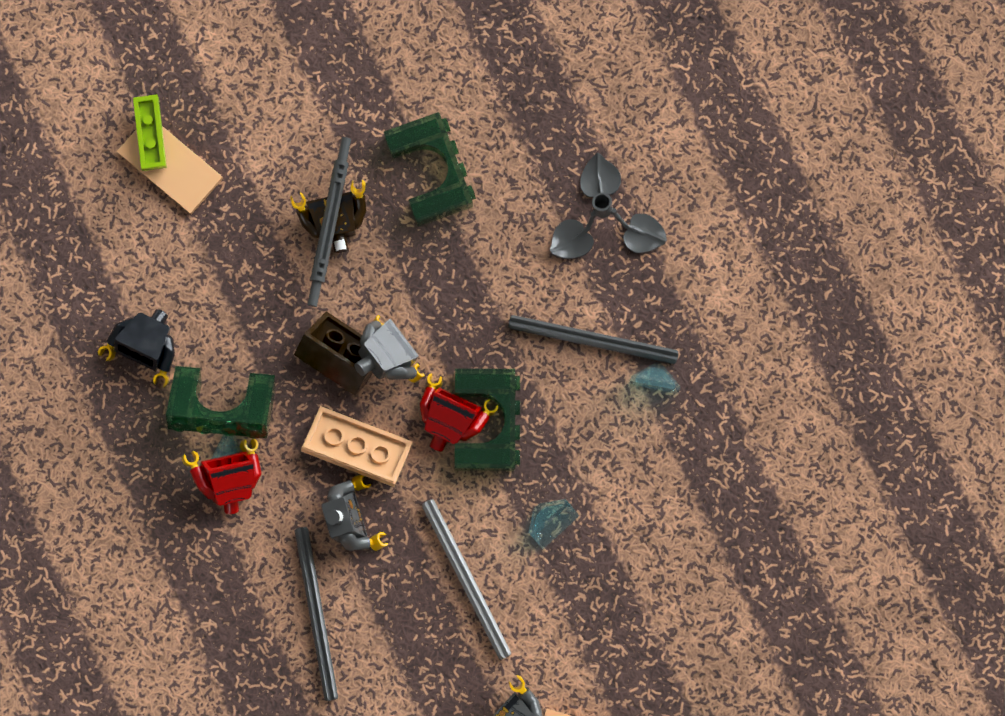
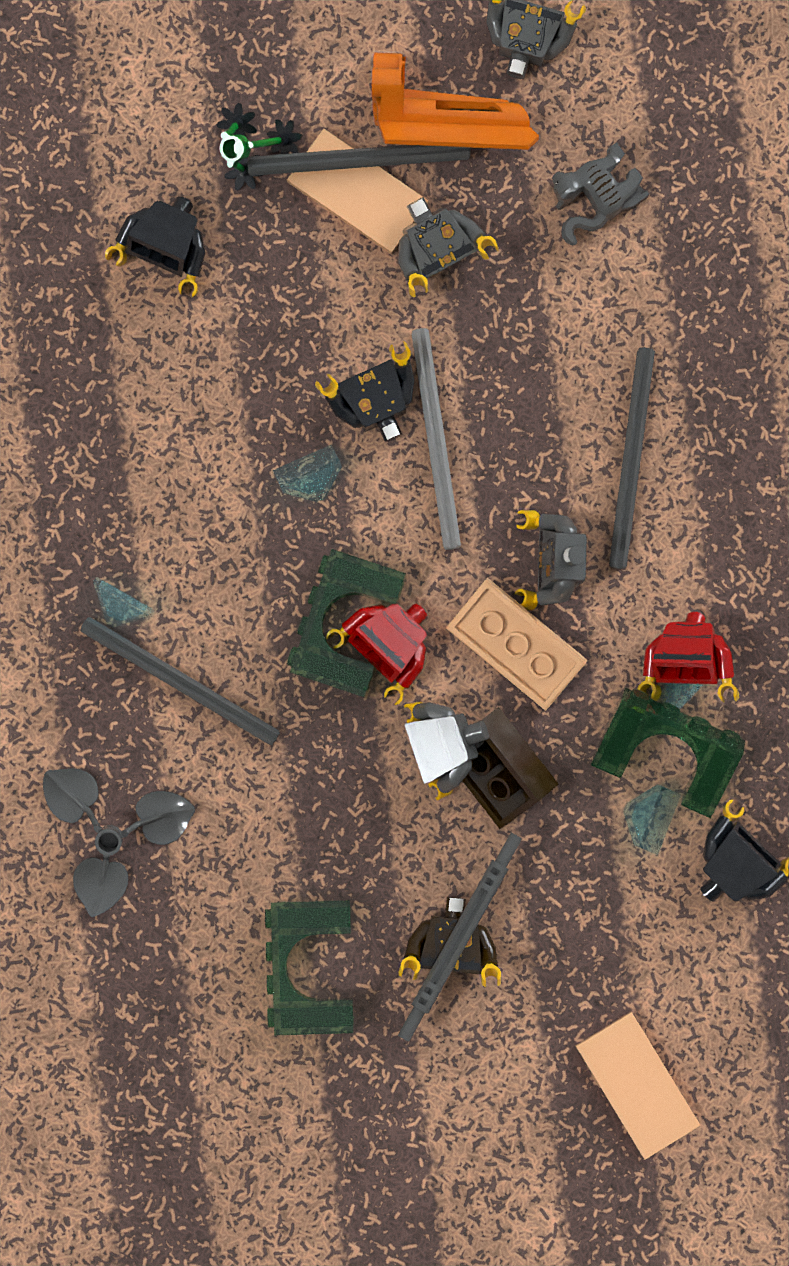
camera: 165 degrees left, 5 degrees up
(149, 132) = (651, 1133): lime plate -> none
(220, 354) = (650, 817): none -> clear light blue slope
(522, 593) = (374, 395): none -> black torso
(718, 659) = (164, 238): none -> black torso

